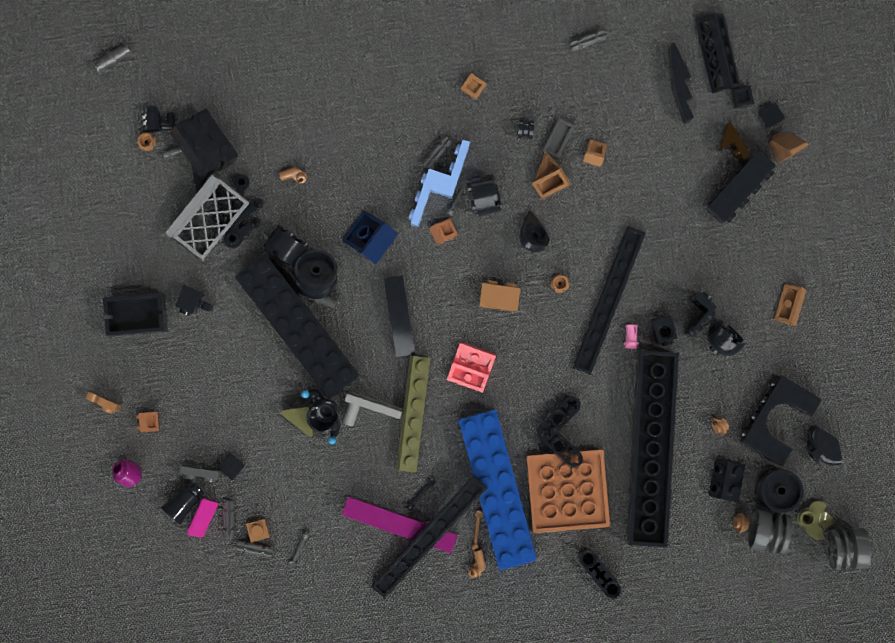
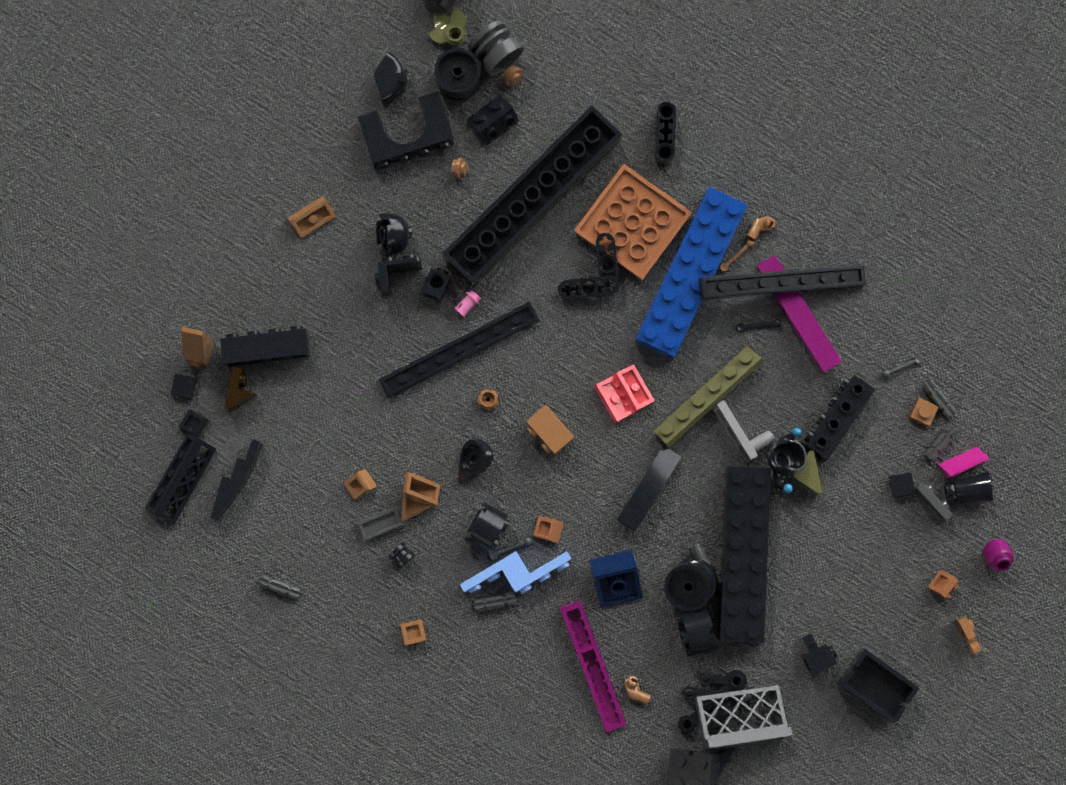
camera: 140 degrees left, 5 degrees down
(311, 475) = (839, 417): none -> black brick
(337, 167) = (592, 665): none -> magenta slope

